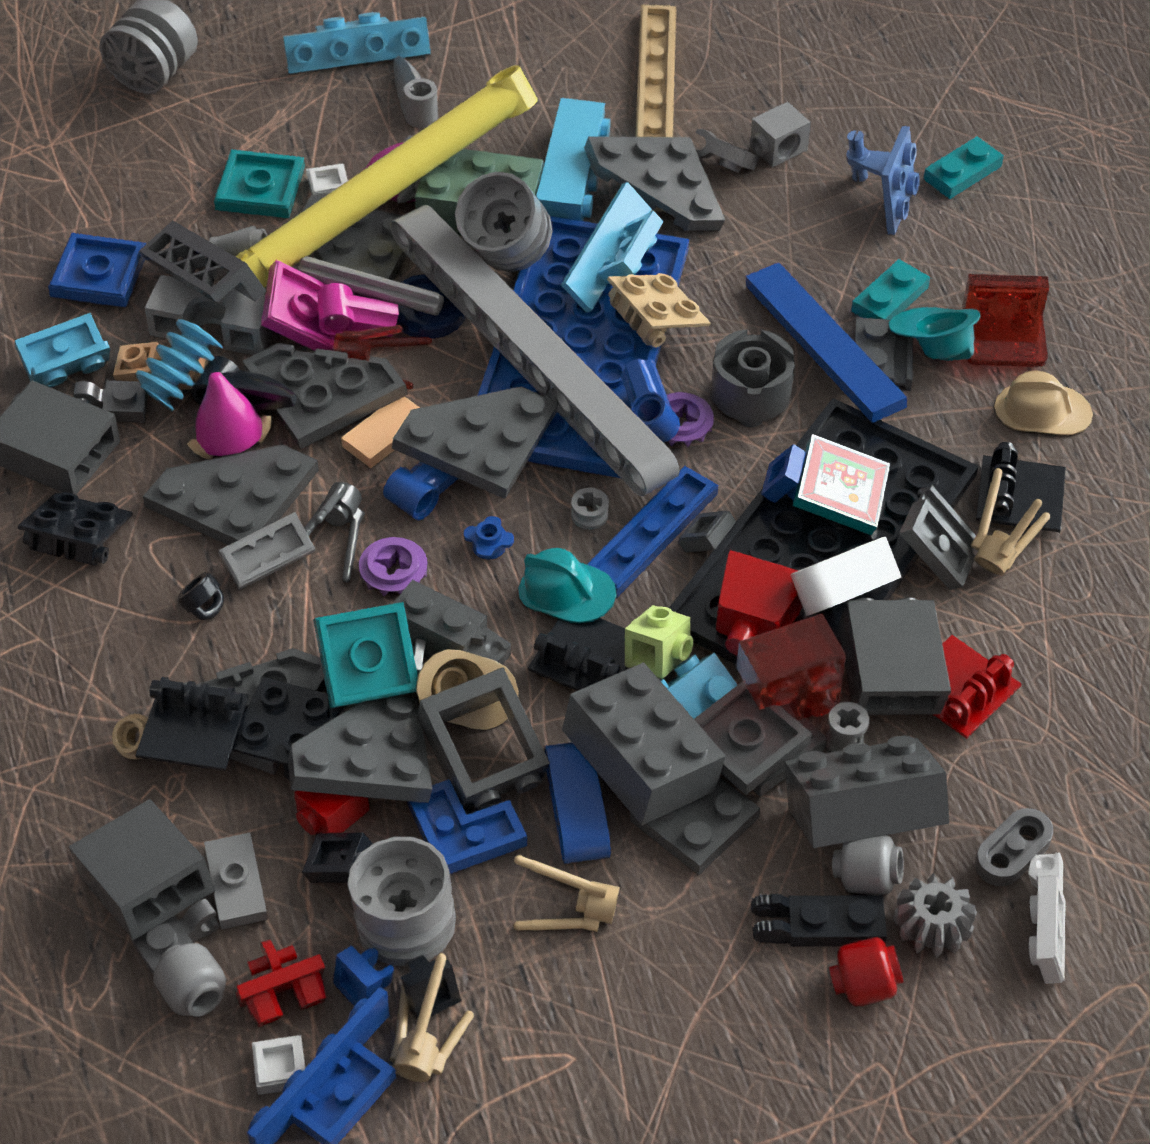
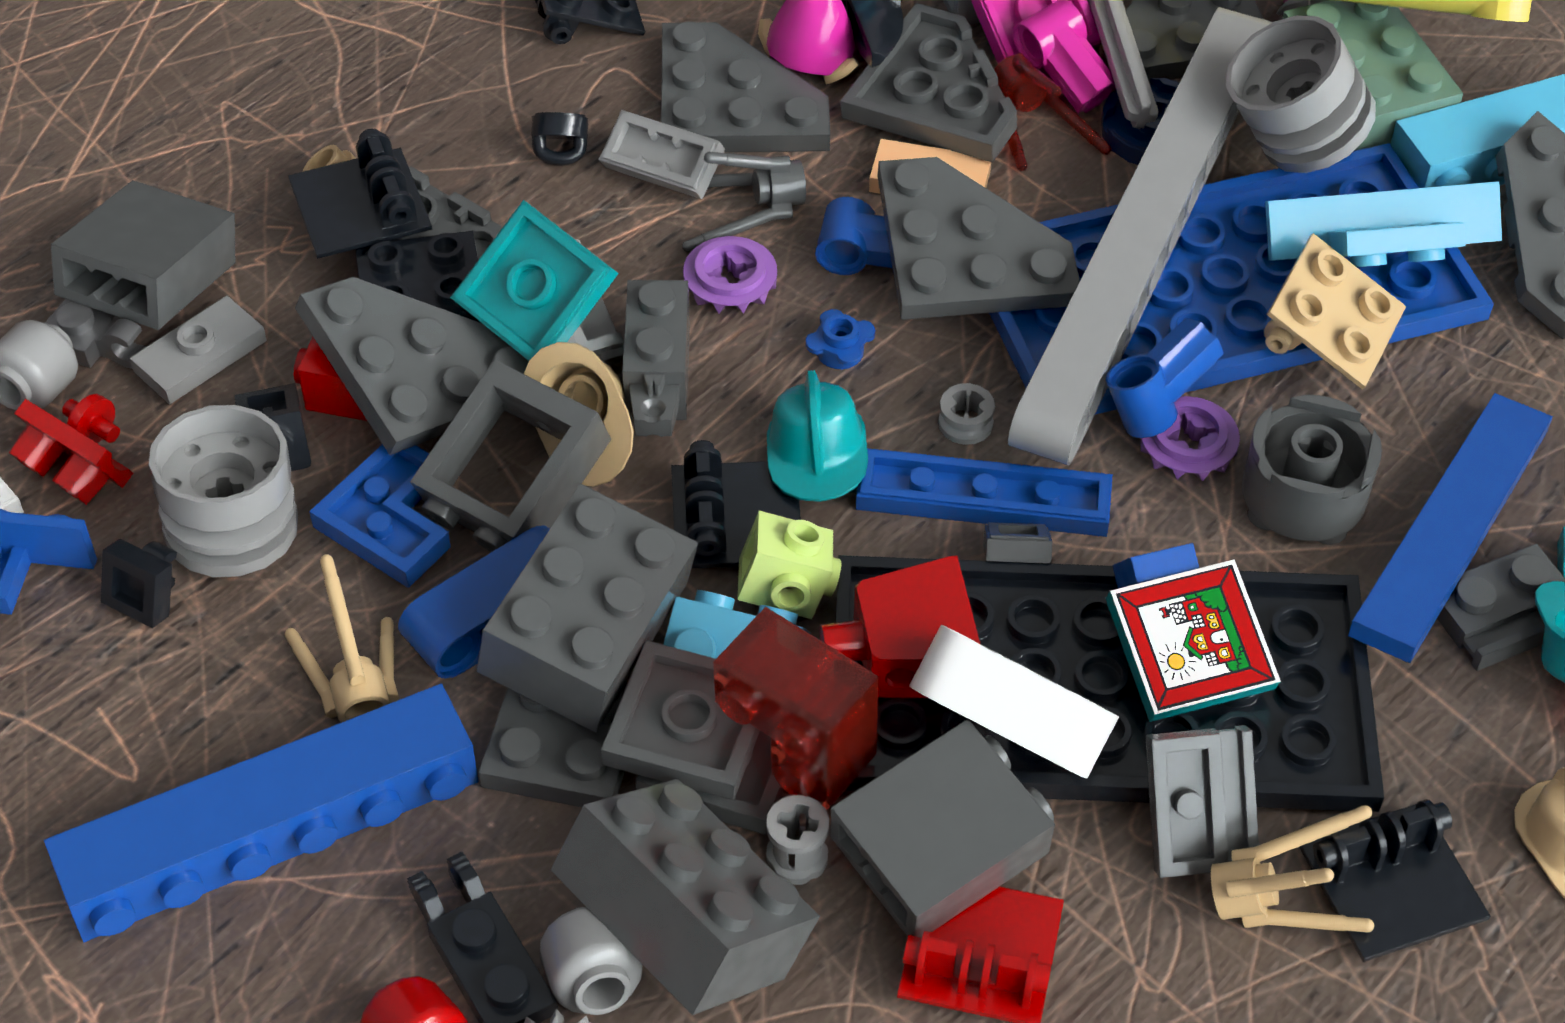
camera: 60 degrees right, 0 degrees up
(357, 977) = (115, 507): blue tile -> none
(417, 1054) = (46, 610): tan plant -> none
(661, 991) = (262, 812): none -> blue brick

